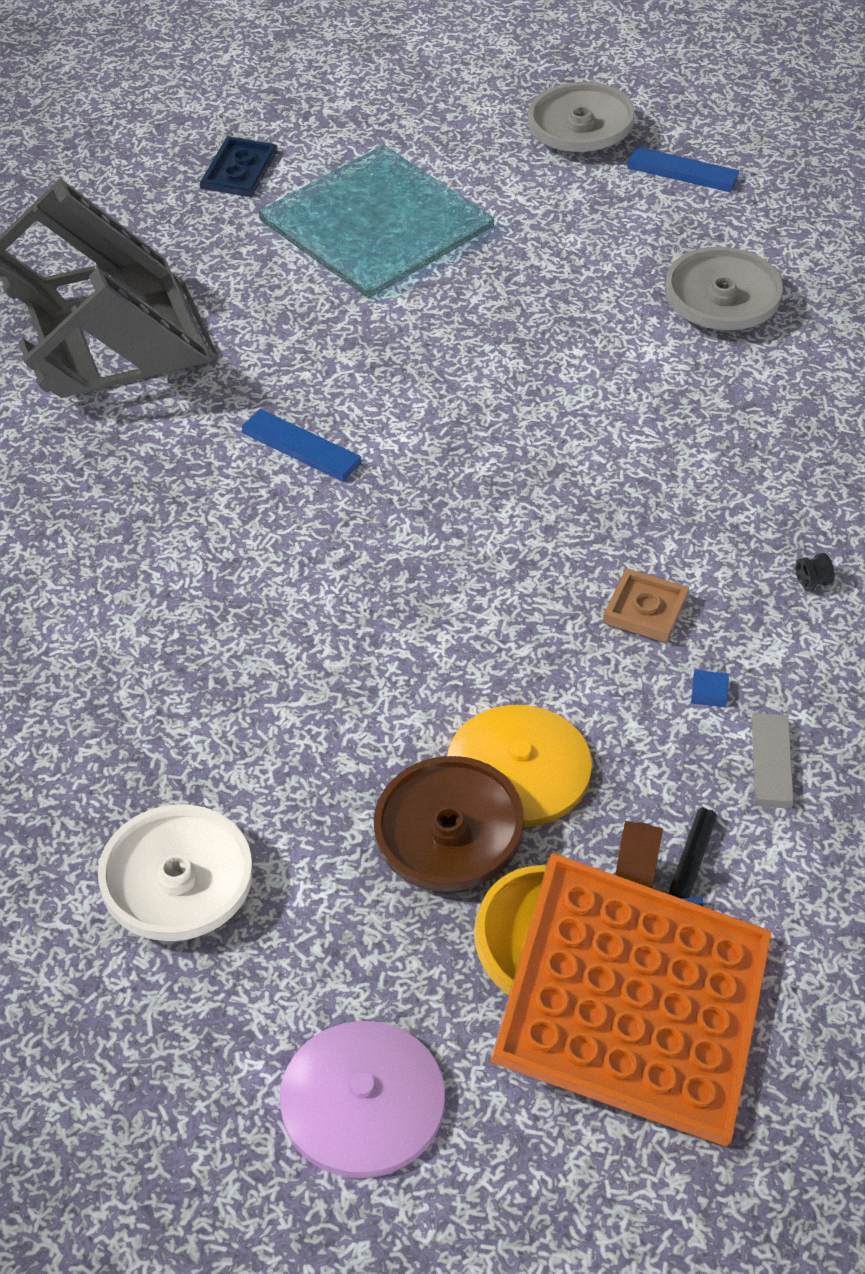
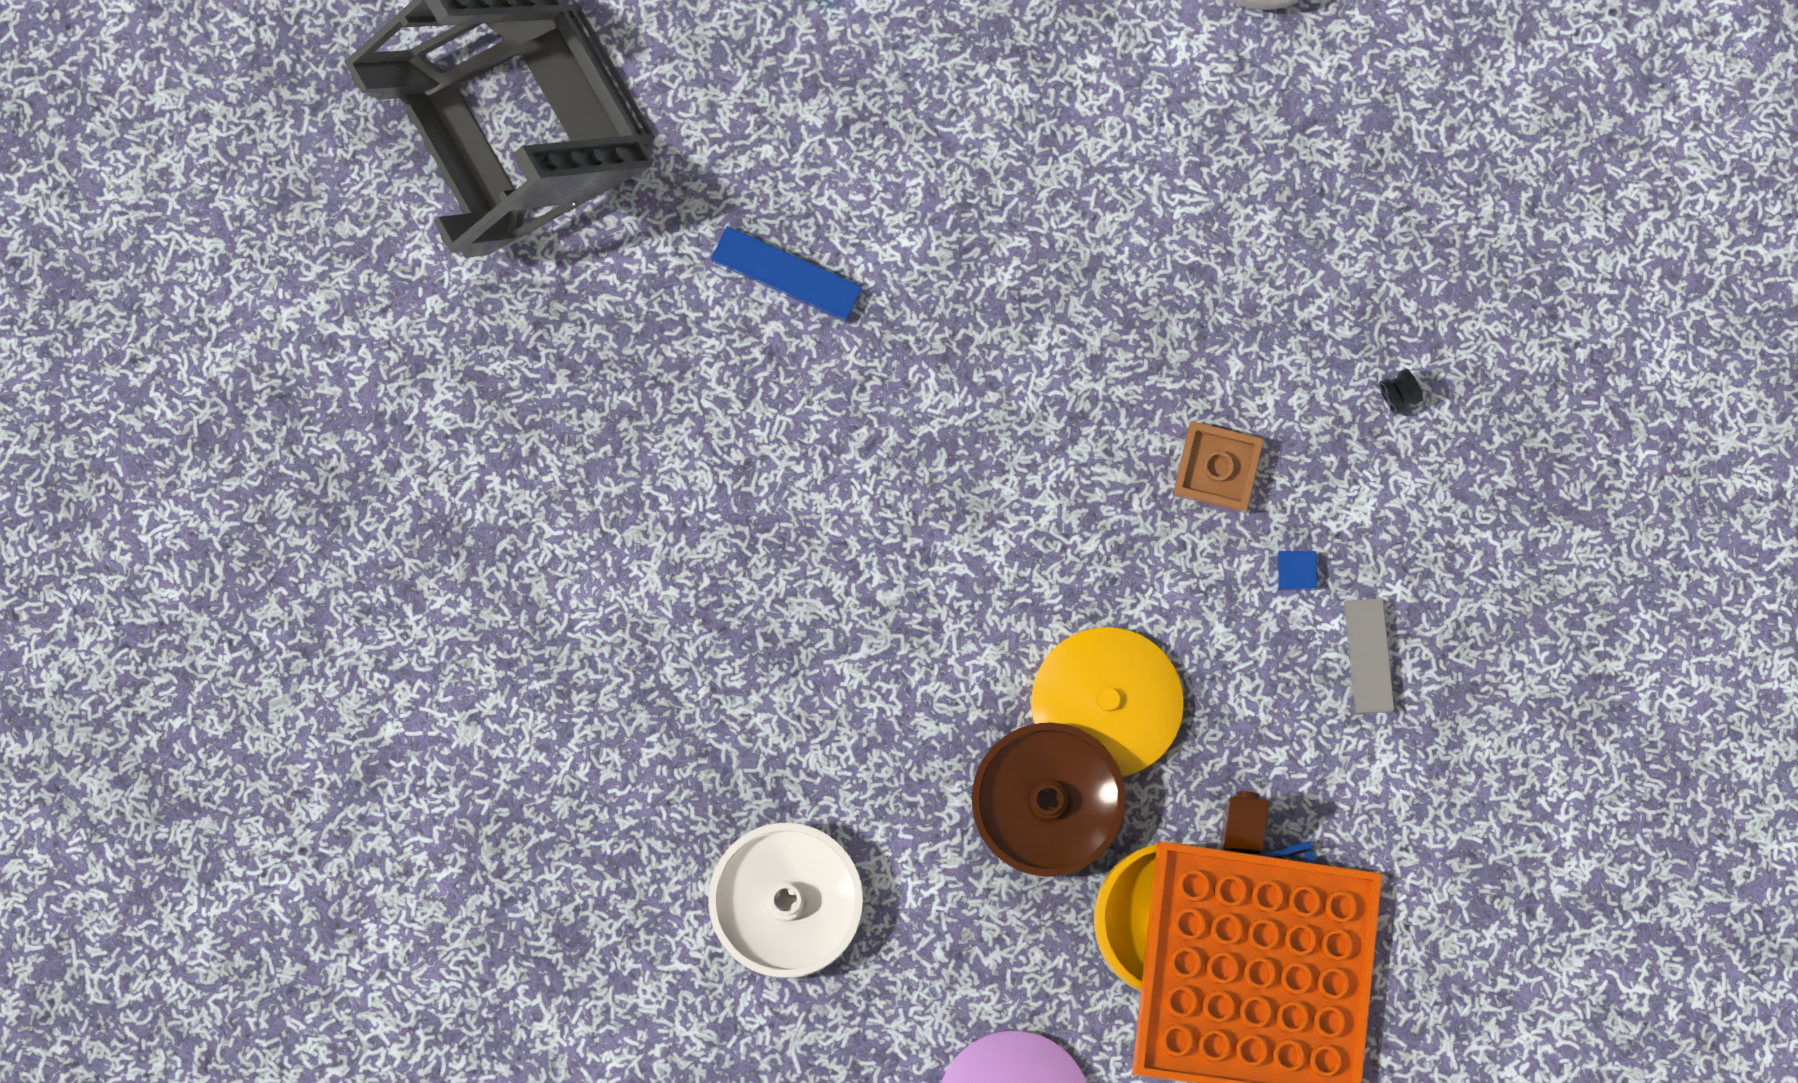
camera: 10 degrees left, 30 degrees up
(693, 853) = (1297, 789): black axle -> none

